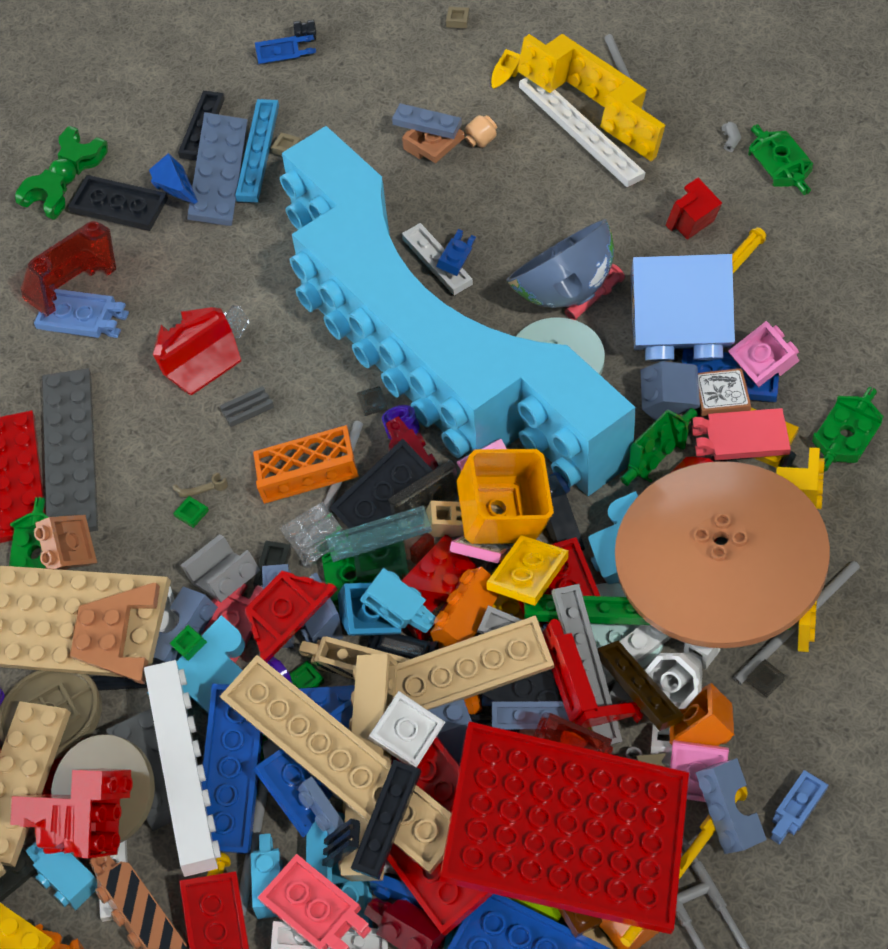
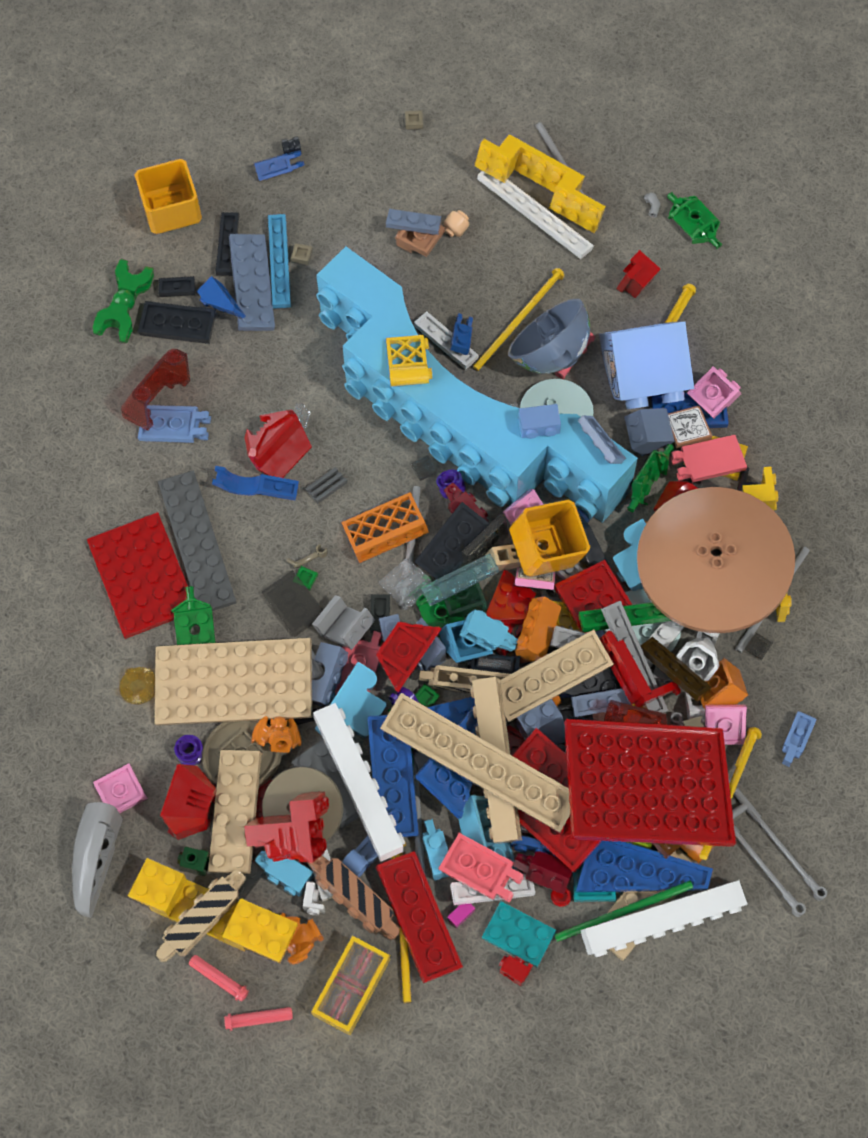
camera: 15 degrees left, 10 degrees up
(65, 542) = (219, 620): nougat plate -> none
(85, 910) = (311, 896): none -> white bracket
(100, 693) = (277, 735): none -> orange animal
(103, 630) = (271, 687): nougat wing -> none
(129, 164) = (177, 286): none -> black plate
(142, 64) = (168, 196): none -> light orange plate
(161, 873) = (361, 858): none -> medium blue plate
(166, 395) = (260, 484): none -> blue piece
(166, 538) = (293, 603): none -> clear smoke tile
(188, 642) = (338, 686): green tile -> none
(313, 797) = (464, 791): sand blue plate -> none
(340, 844) = (491, 816): black tile -> none
(365, 270) = (408, 371): none -> yellow piece
(386, 819) = (522, 799): black tile -> none
(406, 730) = (520, 731): white tile -> none
(421, 547) = (489, 584): clear red tile -> none
(505, 68) = (463, 162): yellow plate -> none
(514, 345) = (539, 421): none -> medium blue brick
(527, 570) = (577, 593): yellow plate -> none
(591, 377) = (601, 440): none -> sand blue plate
(594, 200) = (557, 274): none -> yellow bar
(719, 787) = (745, 735): sand blue arch -> none
(850, 414) = (787, 431): green plate -> none

